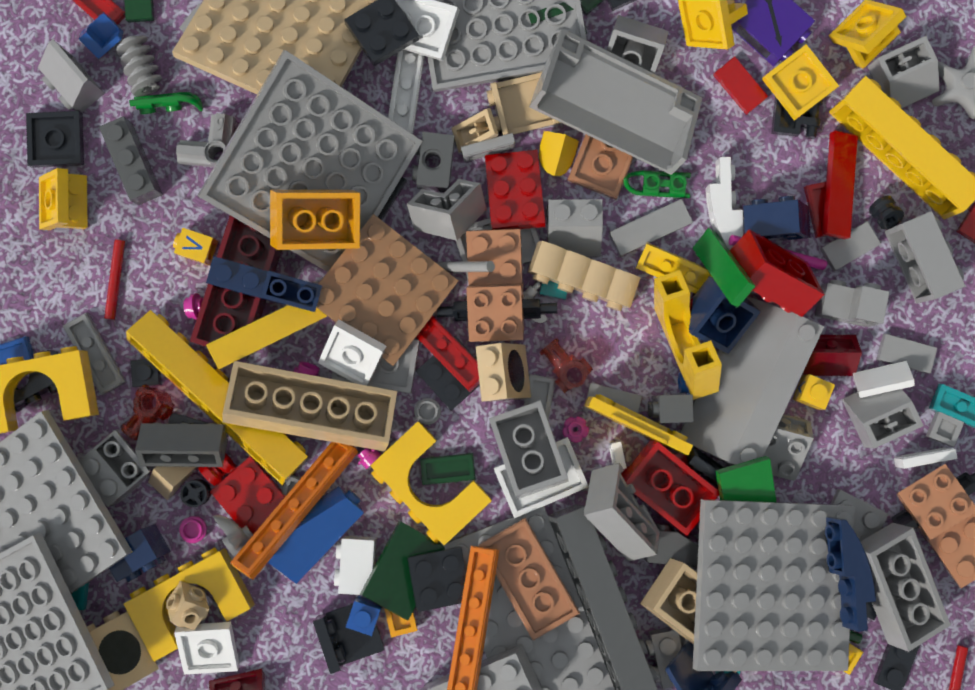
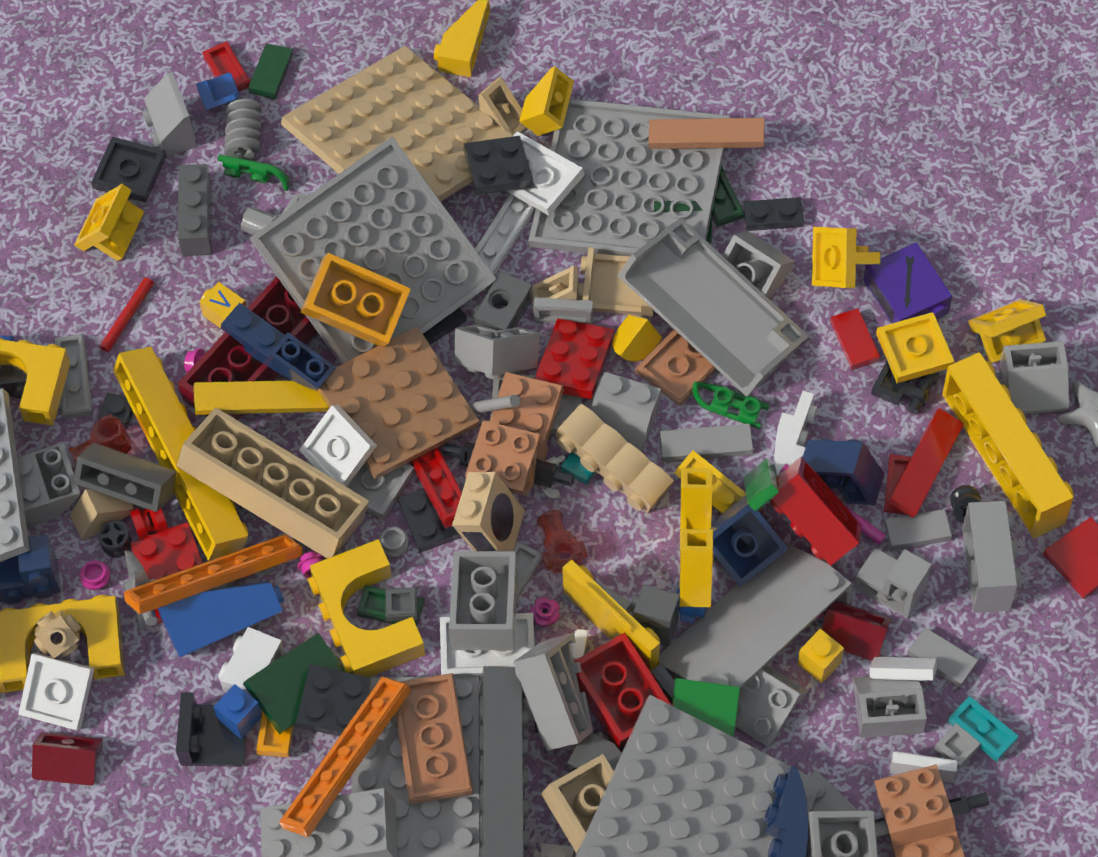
camera: 25 degrees right, 25 degrees down
(457, 468) = (401, 604): none -> dark grey tile

